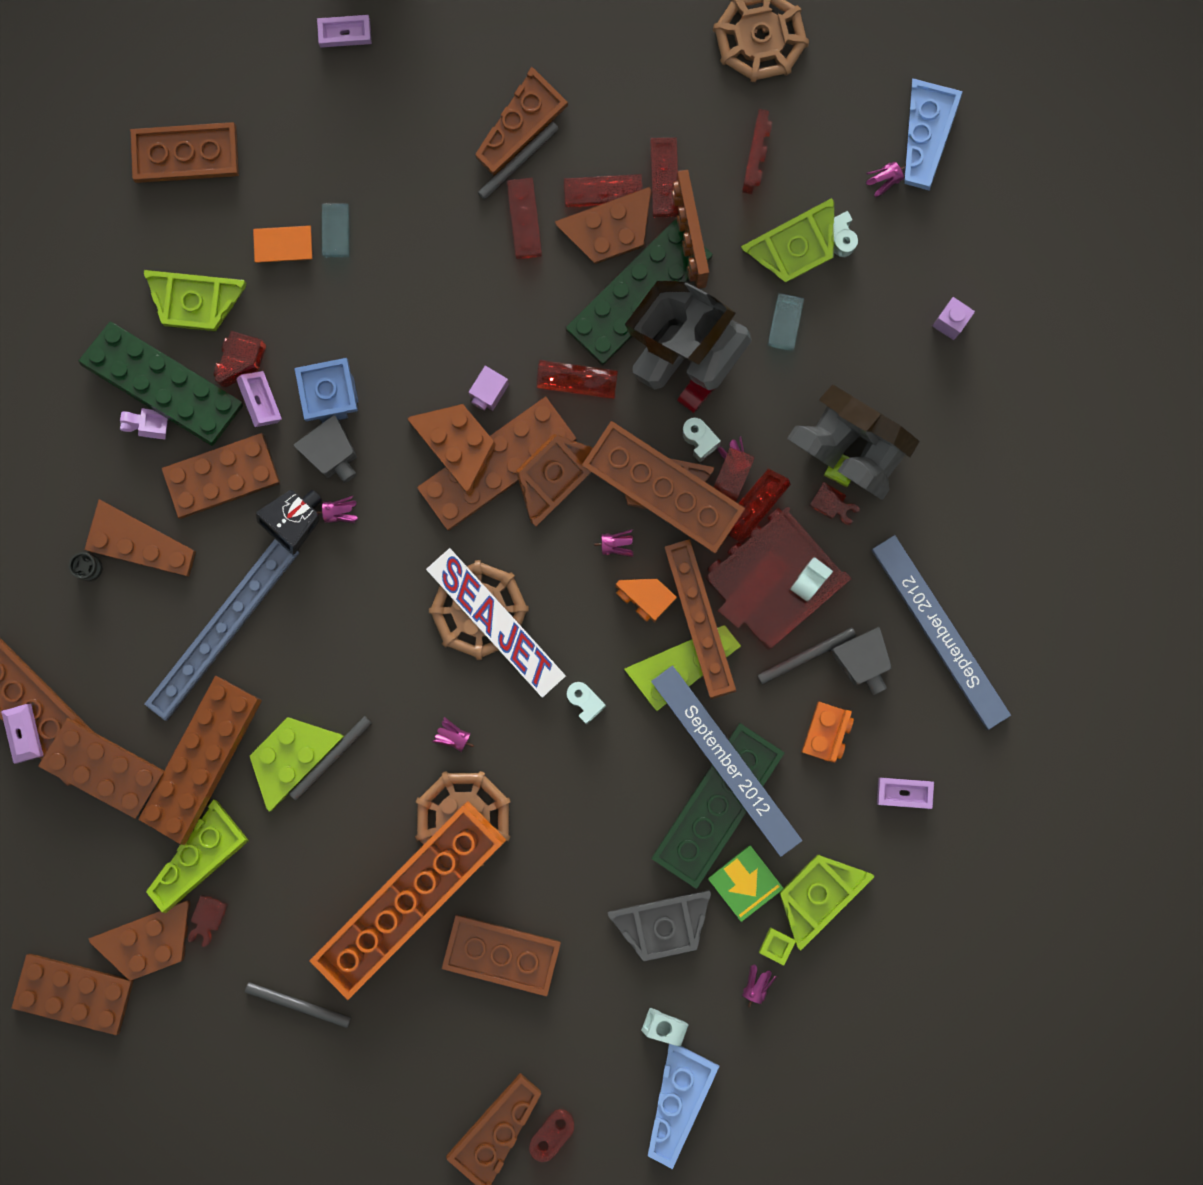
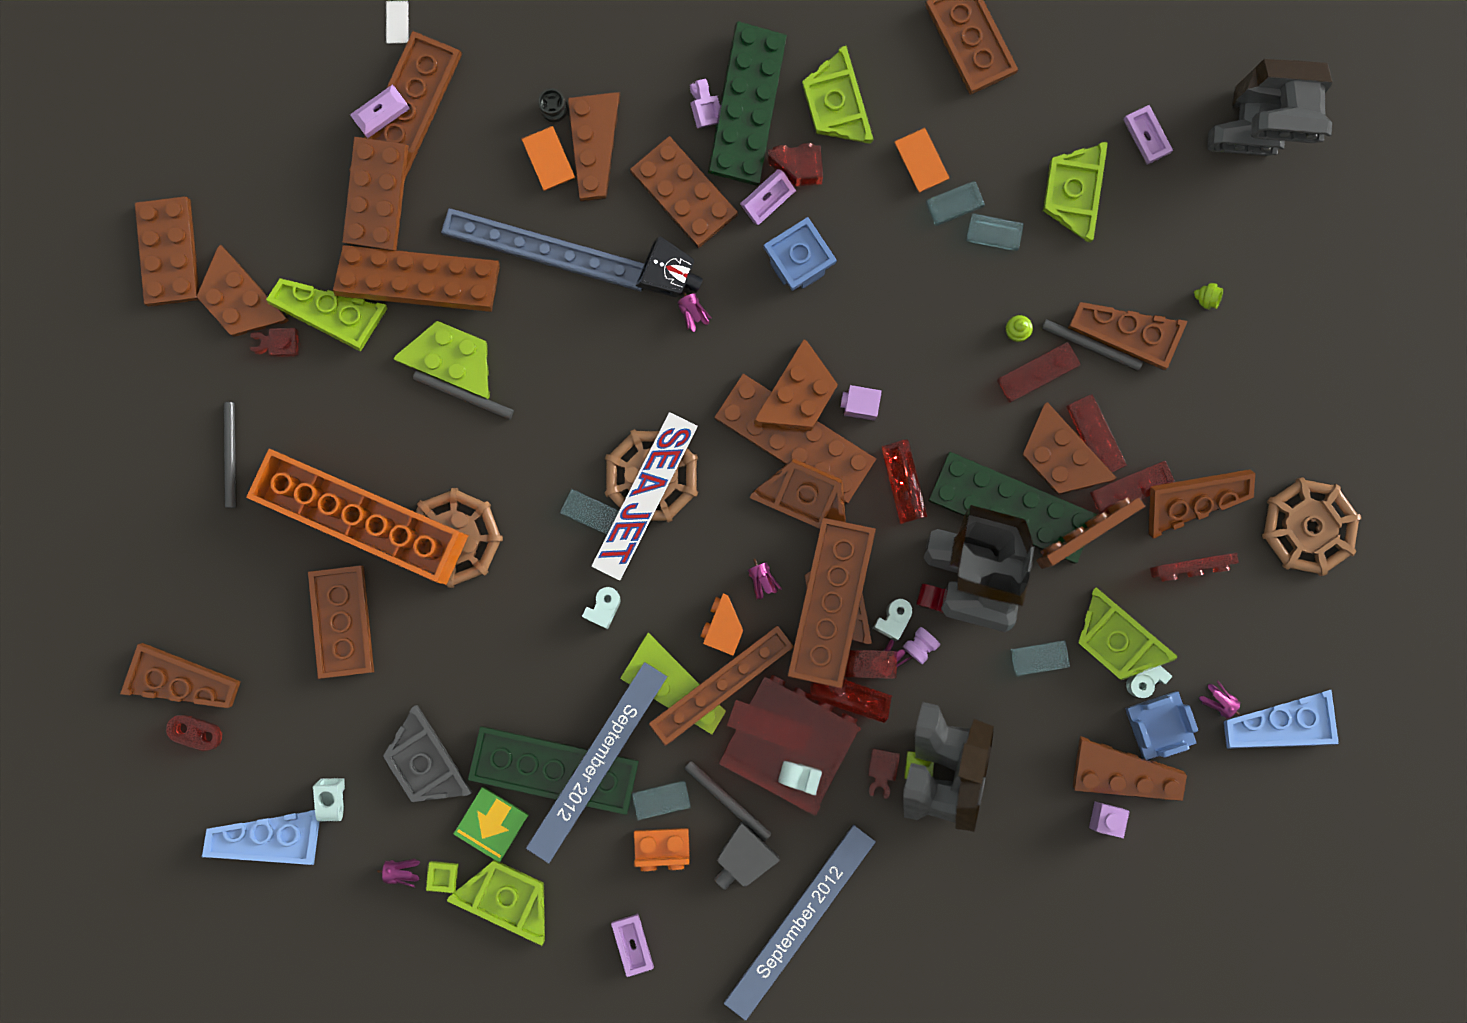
camera: 70 degrees right, 0 degrees up
(135, 590) = (548, 158): none -> orange piece
(329, 449) = (746, 279): dark grey torso -> none
(368, 116) = (1075, 189): none -> lime wing
(377, 205) = (994, 232): none -> clear light blue tile
(452, 736) = (523, 503): flat silver piece -> none
(476, 219) = (1019, 328): none -> lime plate
(490, 680) = (589, 511): none -> clear light blue tile
(516, 38) = (1209, 296): none -> lime plate
(695, 125) = (1195, 498): none -> dark orange wing
(732, 421) = (922, 643): none -> lavender wheel
(783, 716) = (661, 800): none -> clear light blue tile
(888, 238) = (1162, 726): none -> medium blue panel
(914, 295) = (1114, 772): none -> dark orange wing

